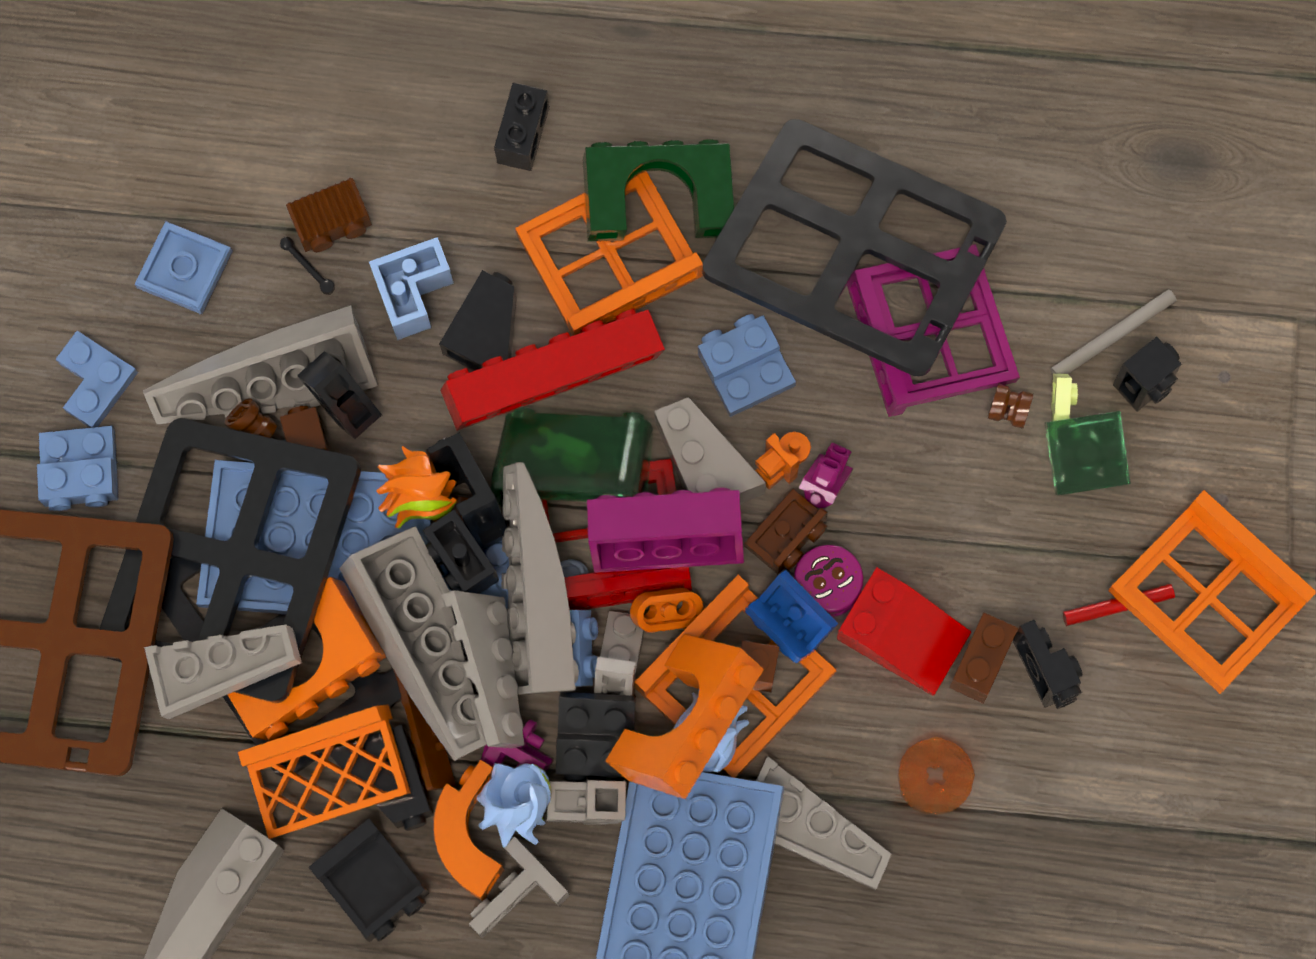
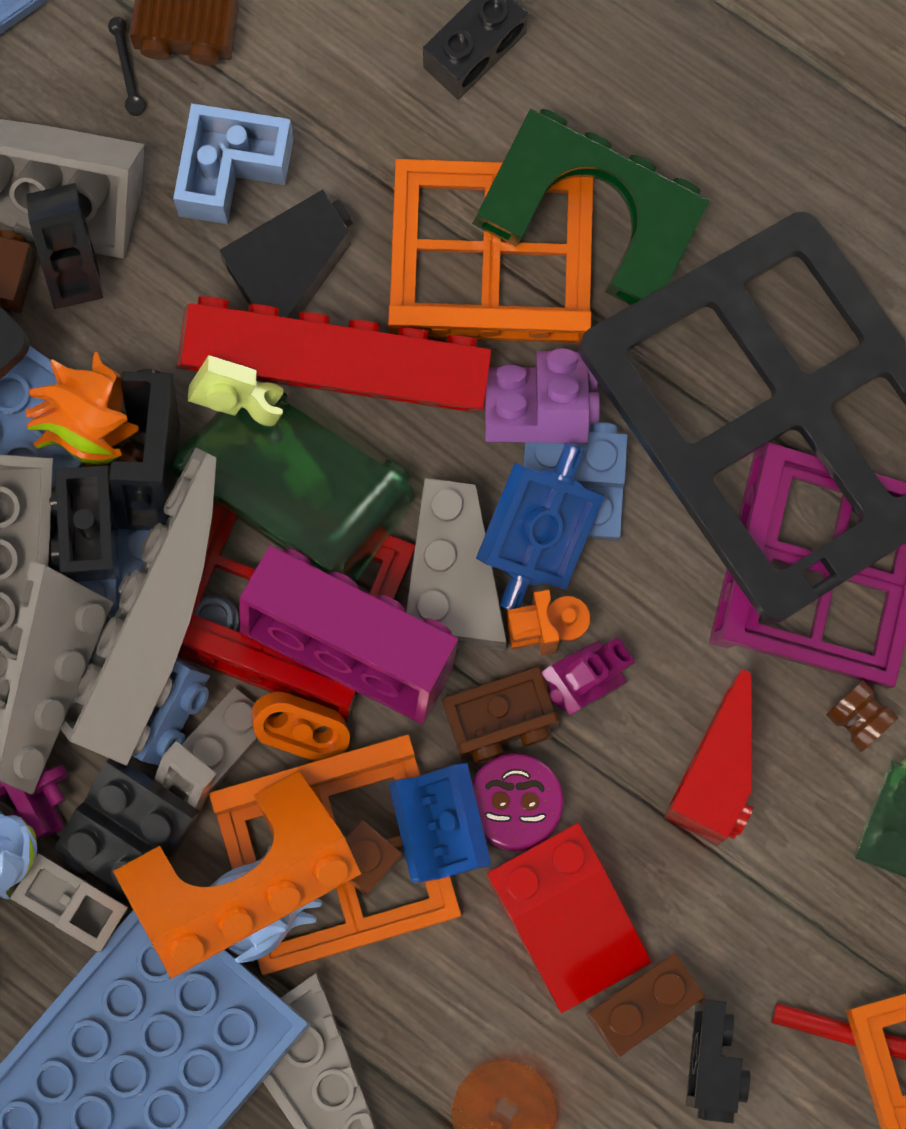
camera: 25 degrees right, 5 degrees up
(500, 419) = (230, 386): none -> yellowish green plate
(700, 323) = (541, 401): none -> medium lavender plate
(744, 399) = (540, 526): none -> blue plate
(946, 489) = (720, 774): none -> red slope

